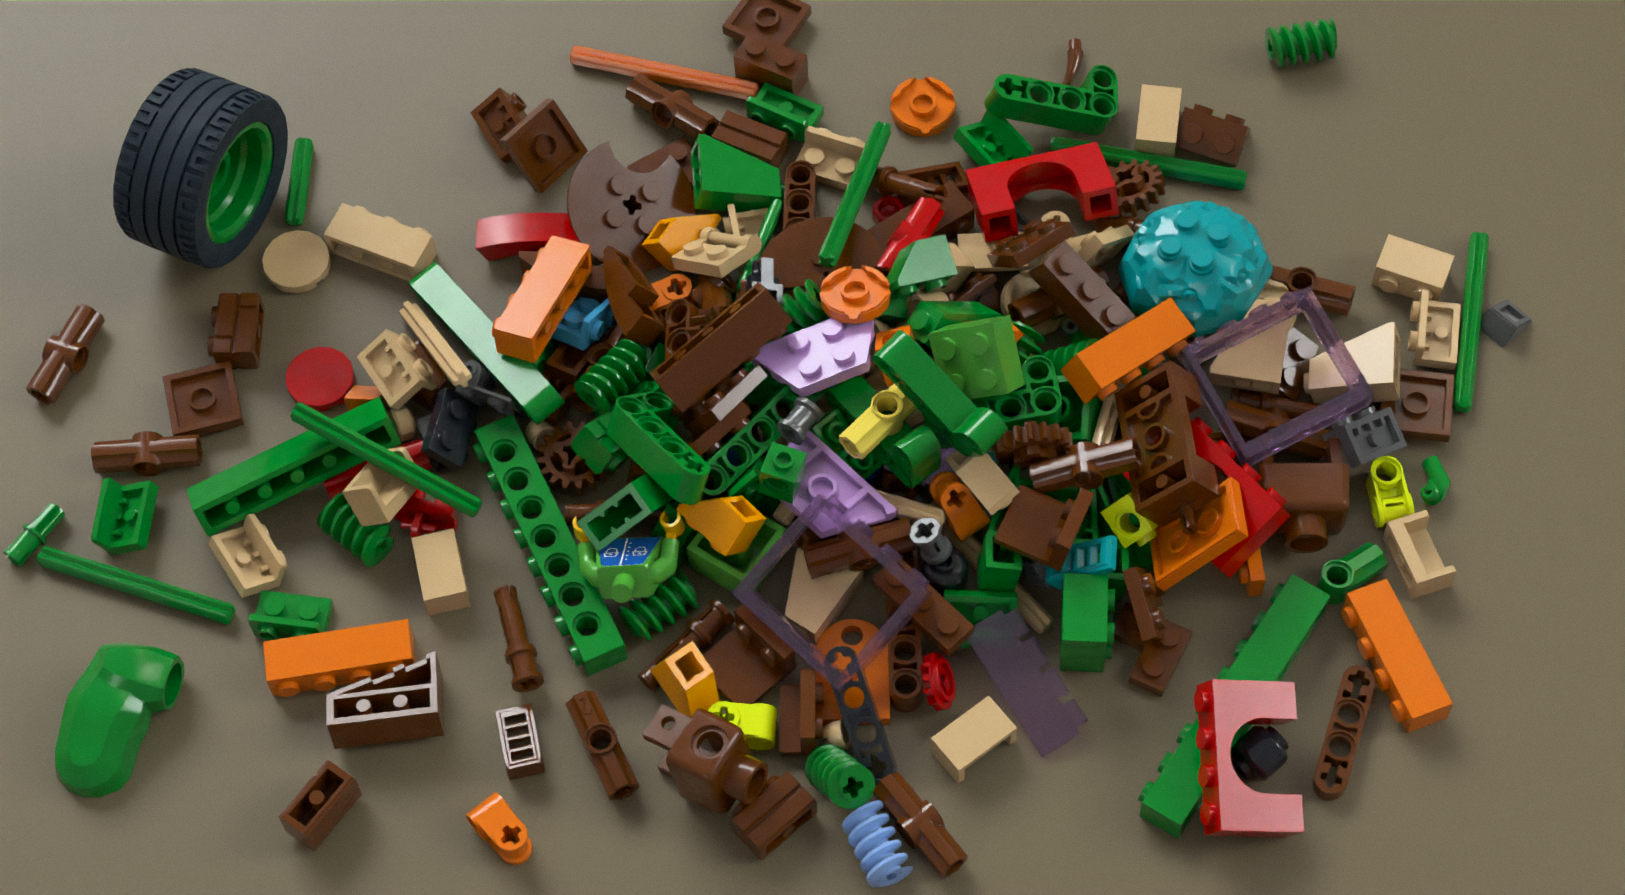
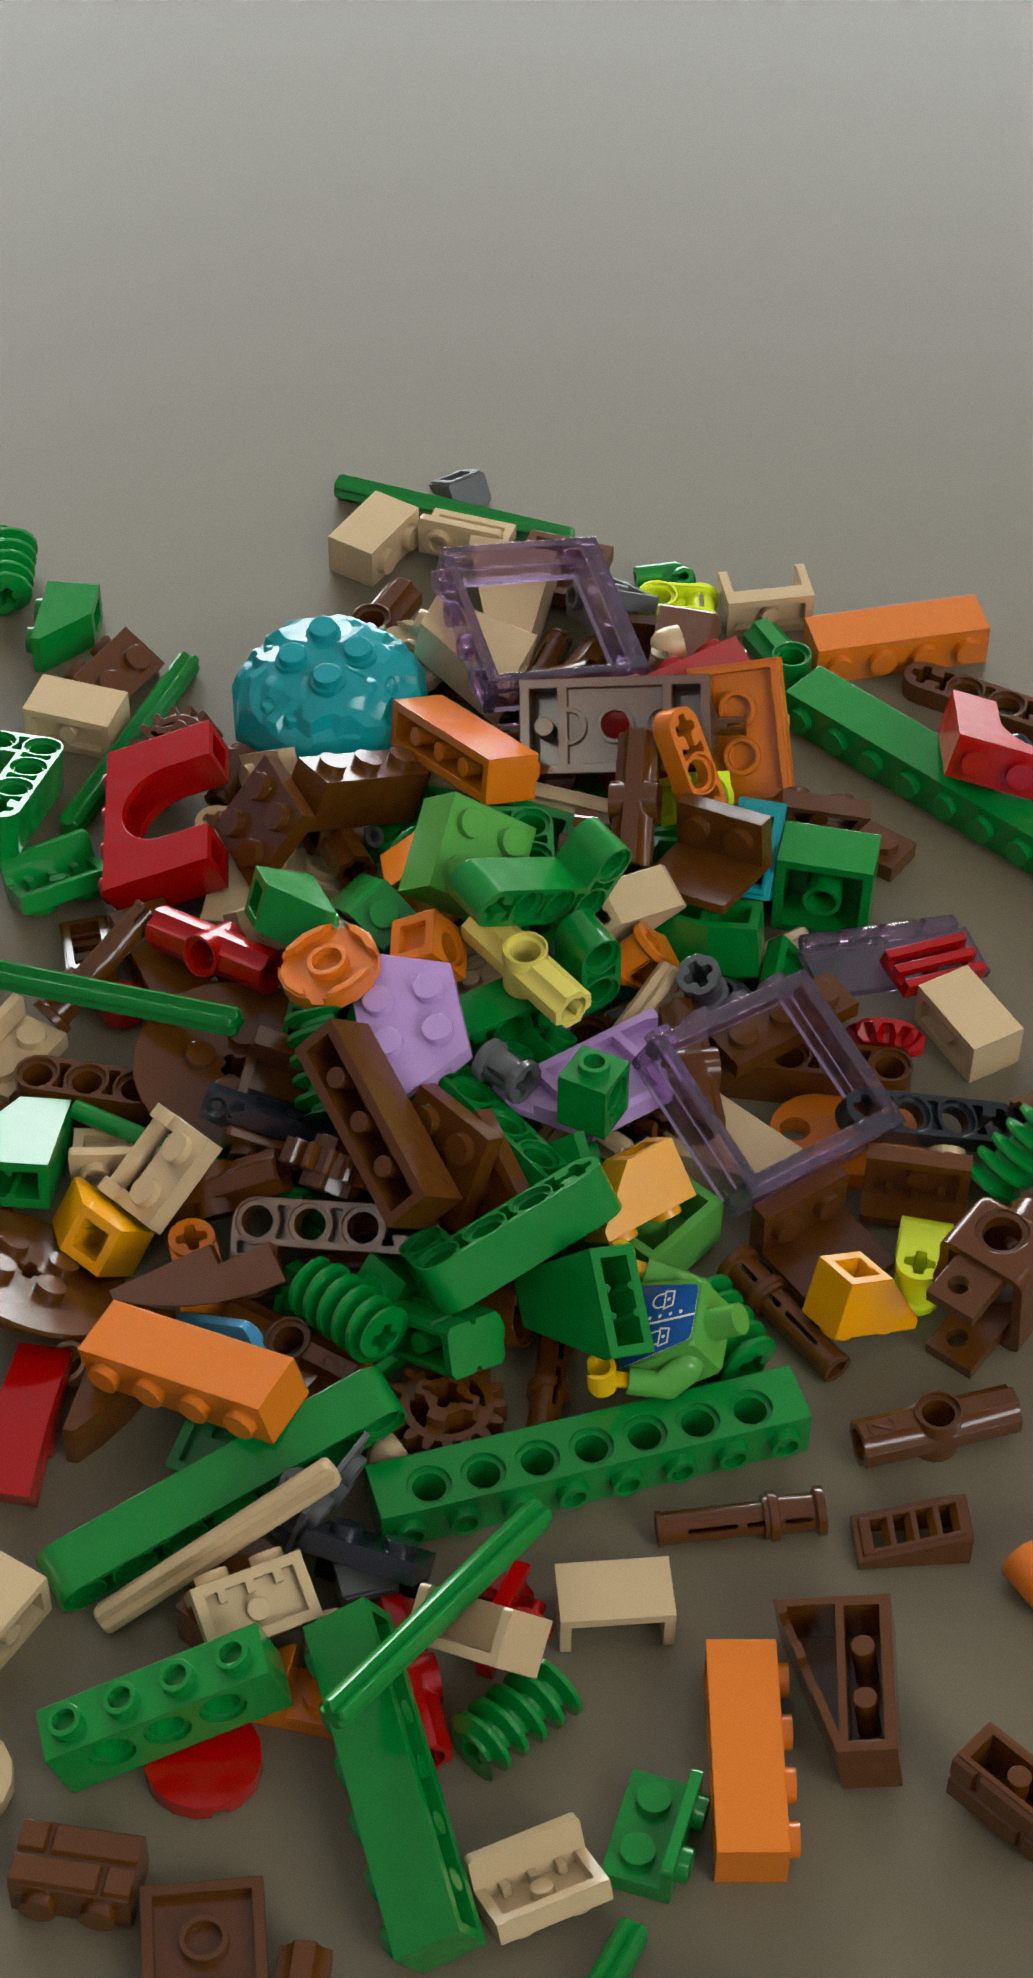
camera: 85 degrees left, 15 degrees down
(328, 342) = (163, 1708): none -> green brick
(1002, 683) = (927, 958): none -> red tile
(1119, 482) = (688, 738): none -> orange beam
(1255, 92) = (65, 623): none -> green slope
(1281, 470) = (668, 643): none -> tan hinge

